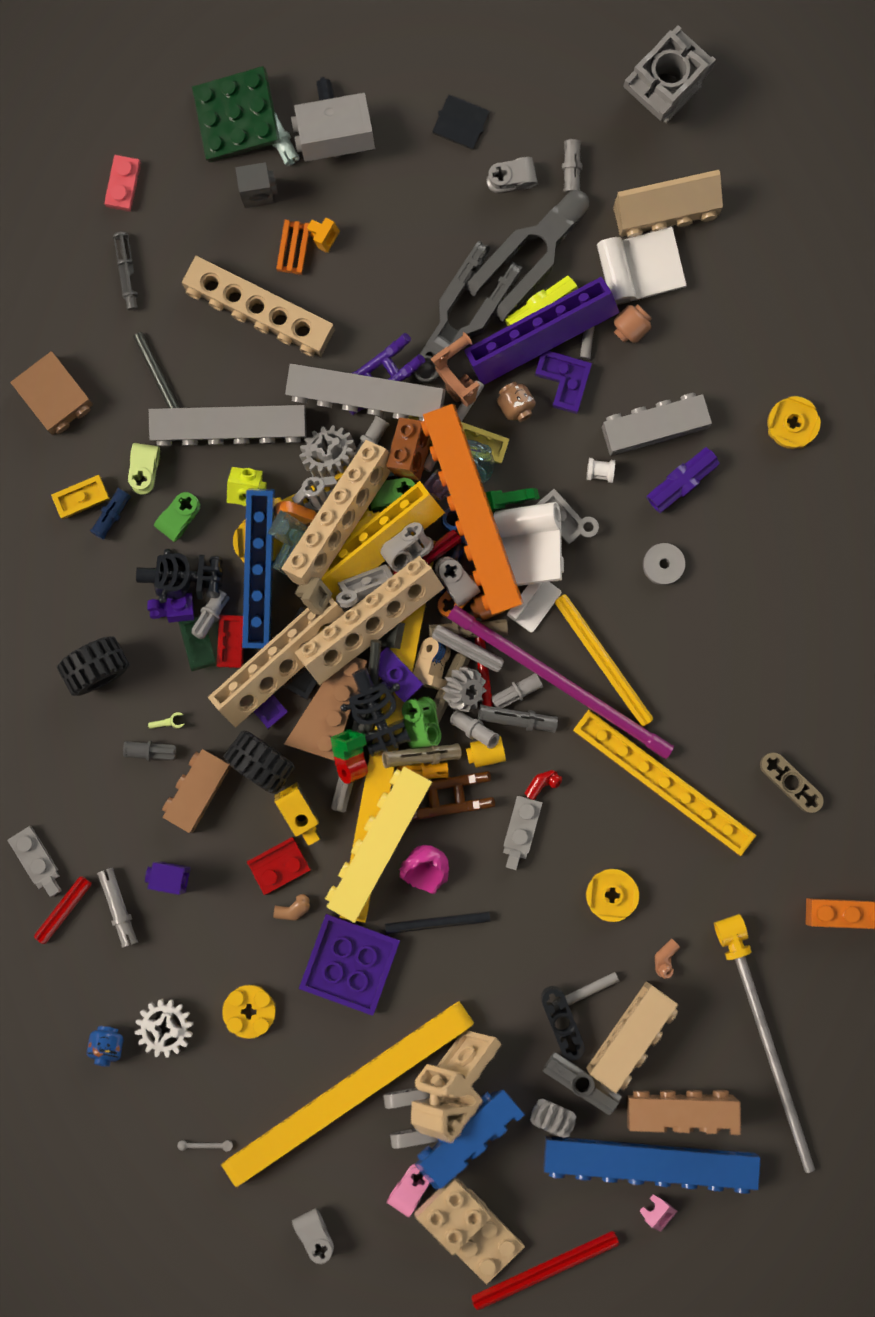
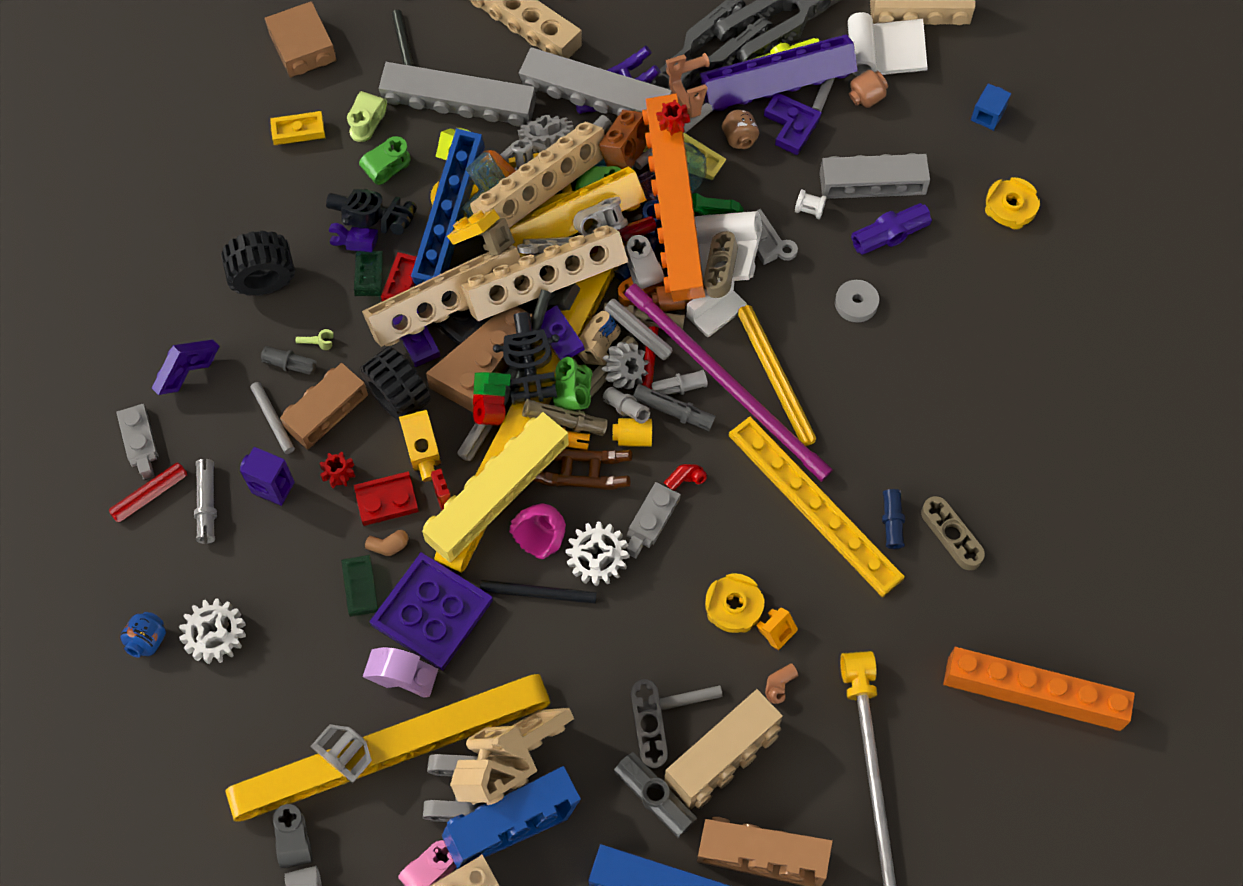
camera: 10 degrees right, 20 degrees down
(54, 781) = (180, 361): none -> dark purple plate
(110, 514) = (321, 147): dark blue pin -> none
(151, 810) = (272, 418): none -> light grey bar
(209, 614) = (388, 249): light grey axle -> none
(222, 857) = (340, 467): none -> red gear
(226, 1145) = (239, 776): light grey hinge -> none
(259, 1022) = (300, 623): yellow plate -> none
(279, 955) = (359, 585): none -> clear green plate
(289, 1193) = (291, 842): none -> dark grey piece
(291, 593) = (472, 226): none -> yellow plate
(312, 1115) = (331, 756): none -> light grey piece
(330, 859) = (440, 487): none -> red tile
(338, 1028) = (400, 669): none -> lavender brick
(448, 438) = (673, 117): none -> red gear
(483, 889) = (609, 555): none -> white gear
(524, 560) = (725, 273): none -> dark tan beam
(553, 1118) = (613, 823): light grey gear -> none
(655, 911) = (778, 628): none -> light orange tile
(737, 782) = (893, 519): none -> dark blue pin
(756, 316) = (990, 106): none -> blue brick

